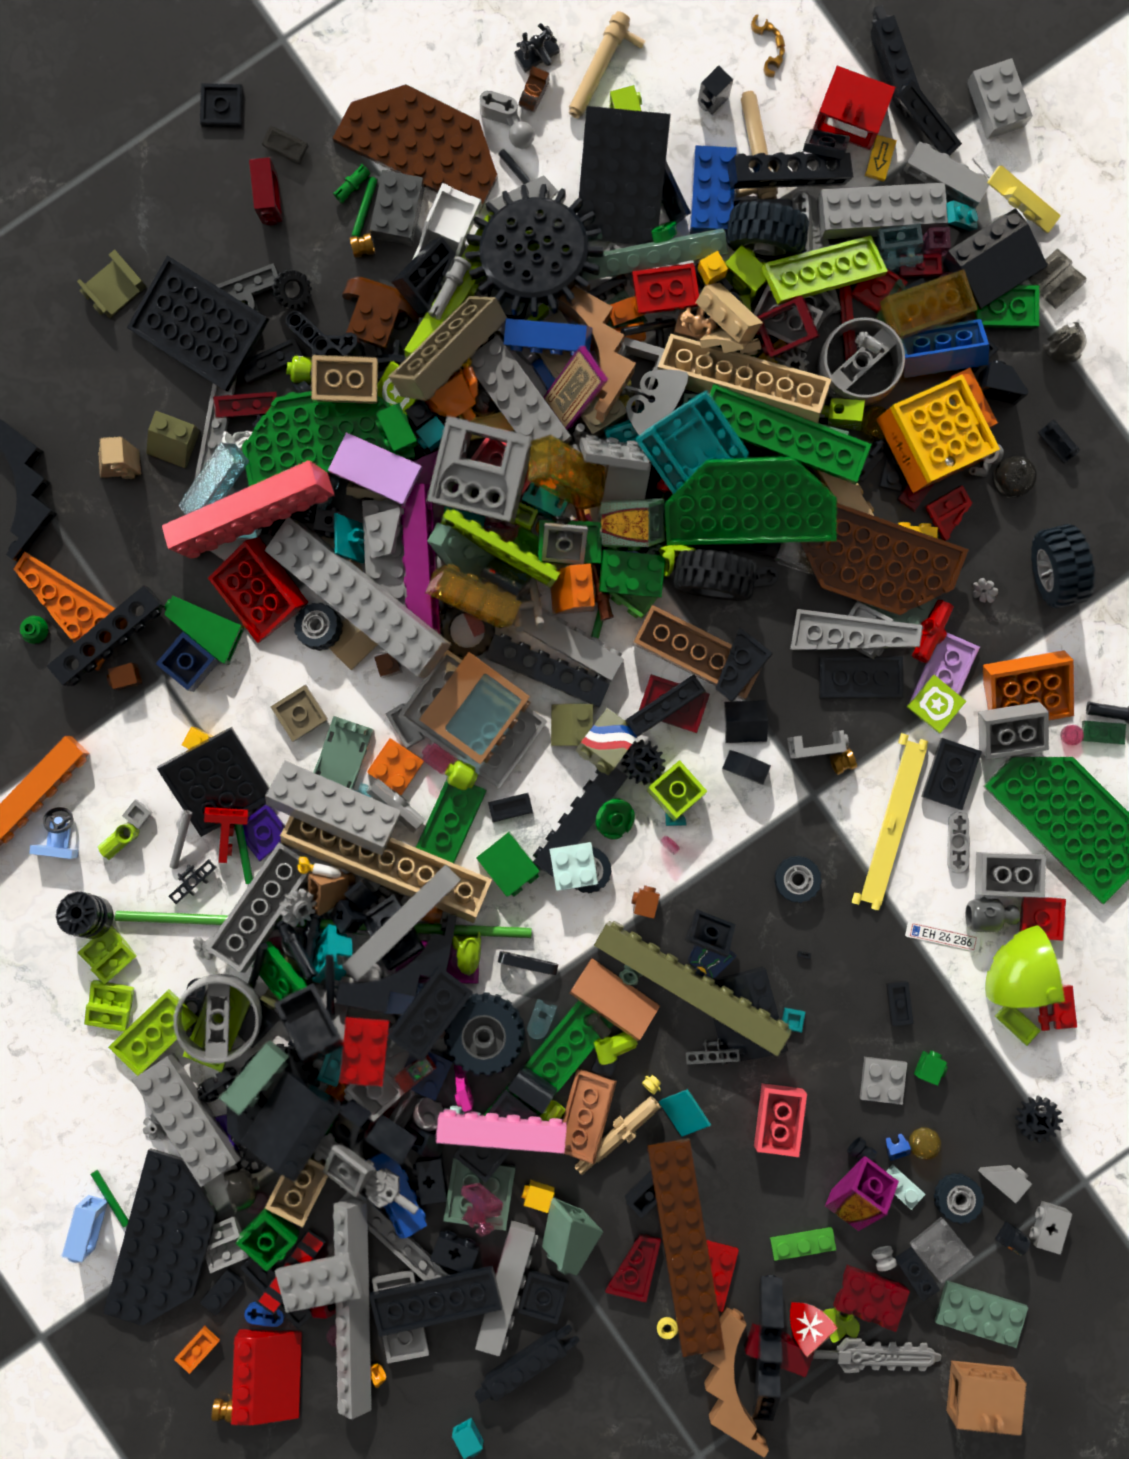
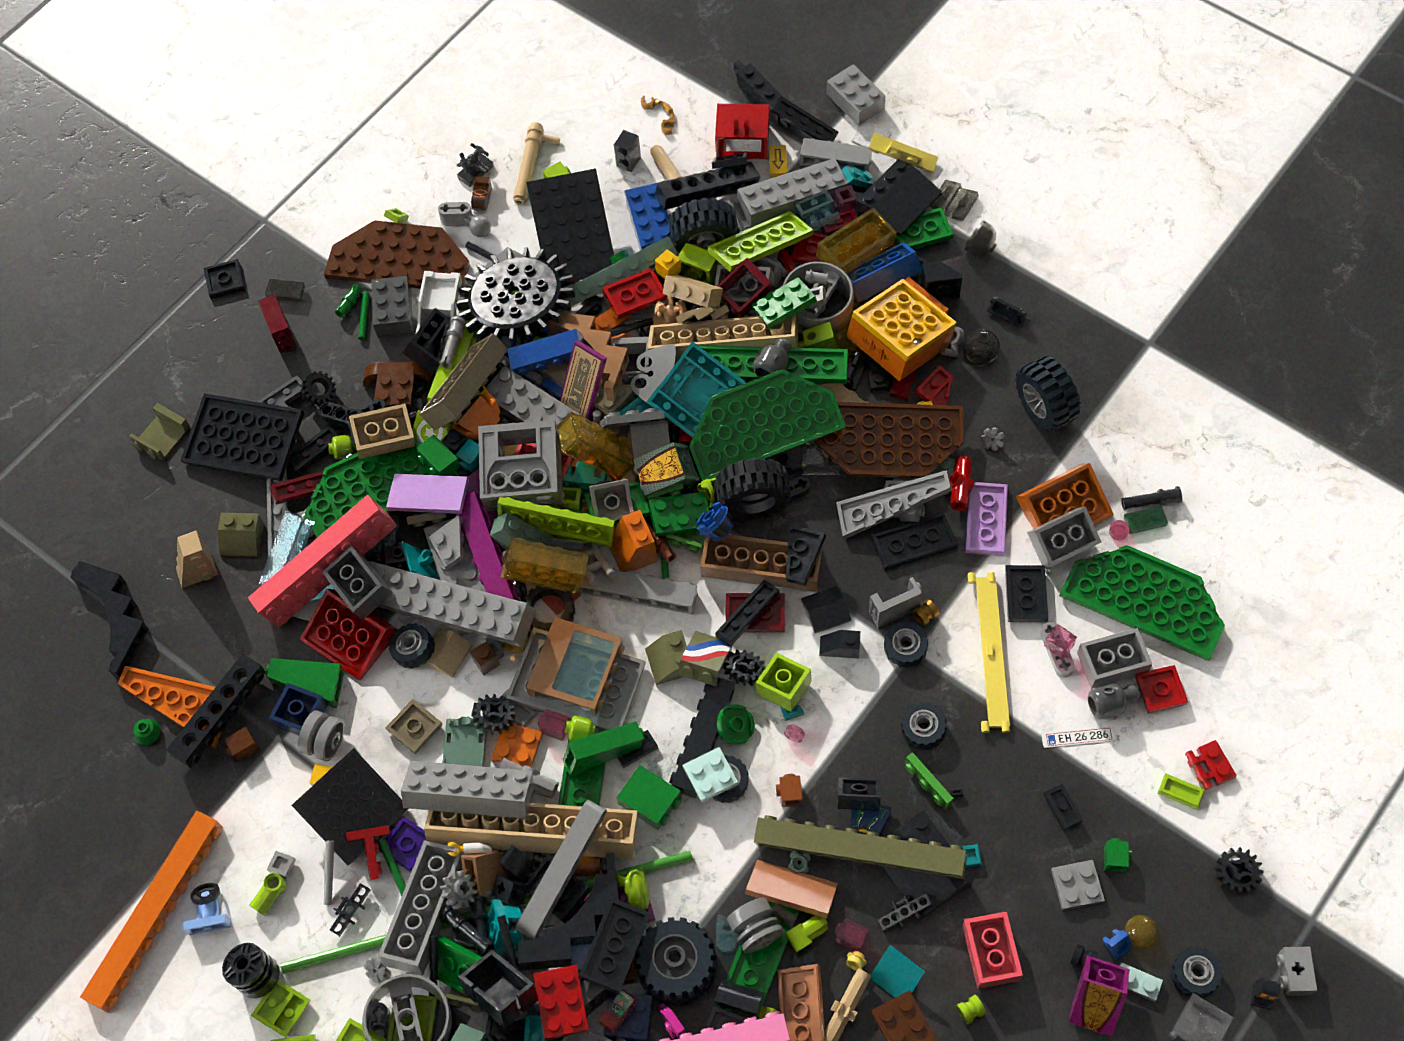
camera: 10 degrees left, 25 degrees down
(204, 698) = (321, 735): none -> light grey wheel
(276, 550) = (357, 582): none -> dark grey brick
(362, 245) = (369, 341): pearl gold wheel -> none
(377, 723) = (493, 714): none -> black gear
(431, 86) = (396, 215): none -> lime tile
(478, 803) = (602, 747): none -> green slope
(501, 643) = (639, 626): black brick -> none
(528, 963) = (697, 882): black beam -> none
(568, 1036) = (754, 923): none -> light grey wheel
(655, 1060) = (851, 934): none -> clear pink brick
(664, 603) = (716, 523): none -> blue cone
(672, 198) = (620, 235): black plate -> none
(740, 1164) = (971, 1009): none -> lime wheel
(781, 937) = (928, 781): none -> bright green plate
(786, 436) = (772, 358): none -> dark grey piece
(823, 364) = (784, 303): none -> plate
(824, 791) = (905, 655): none -> black wheel
(859, 368) = (820, 294): none -> light grey plate
(936, 704) = (988, 539): lime tile -> none
(964, 841) = (1060, 641): none -> clear pink panel
(1008, 1180) = (1235, 939): light grey slope -> none
(1025, 972) = (1164, 734): lime brick -> none

